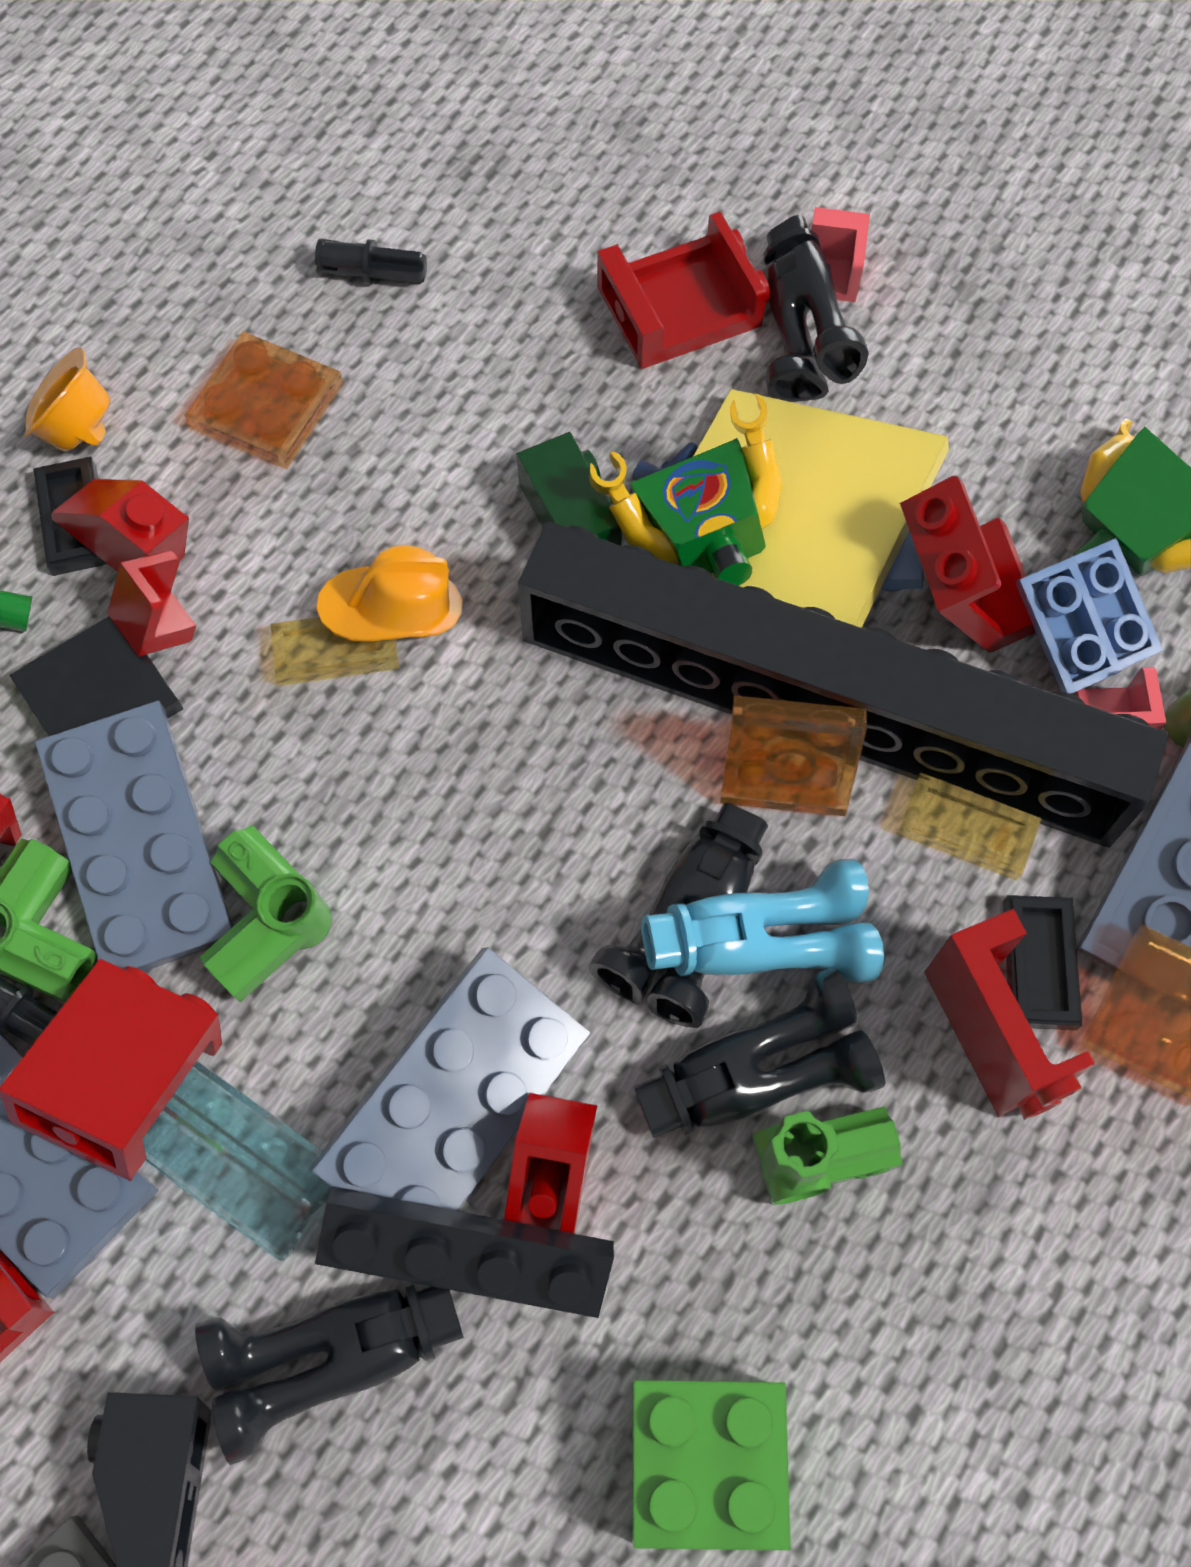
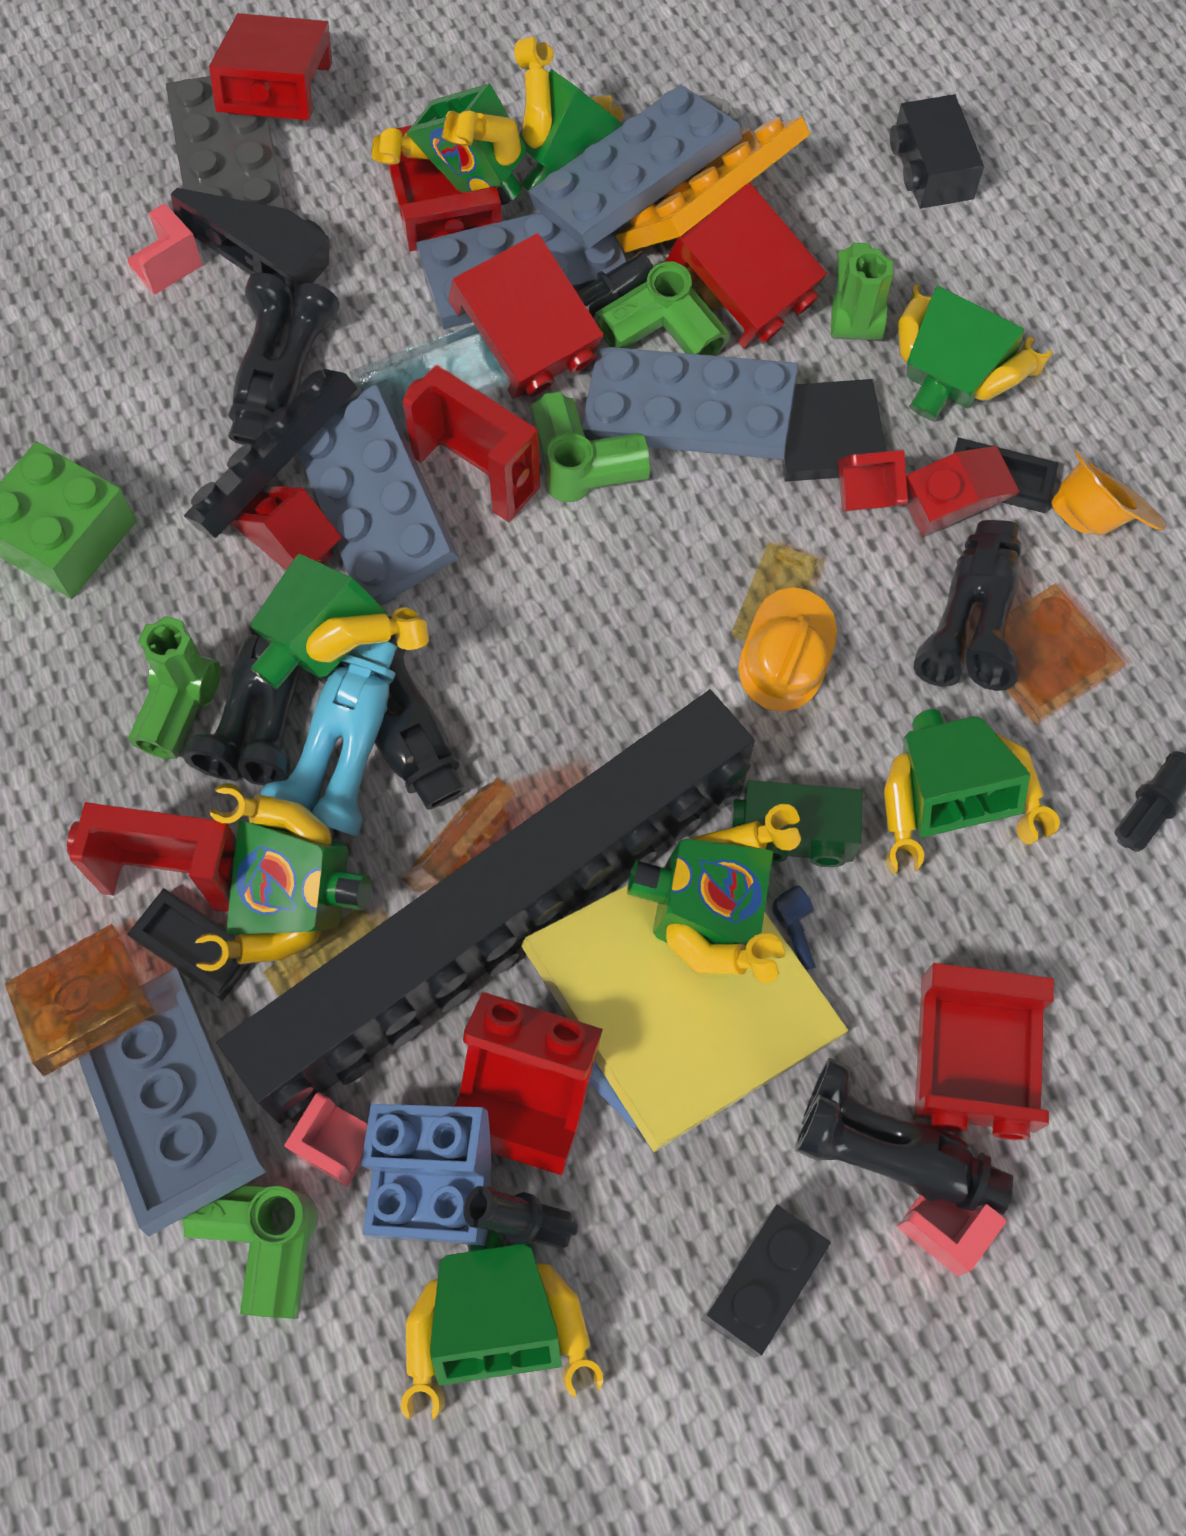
camera: 120 degrees right, 0 degrees up
(215, 466) = (986, 578): none -> black piece
(325, 952) = (479, 430): none -> red panel
(456, 400) = (958, 779): none -> green torso
(667, 1007) = (320, 618): none -> green torso
(949, 879) = (284, 881): none -> torso
(974, 346) = (766, 1281): none -> black brick
(1071, 523) = (519, 1217): none -> black axle

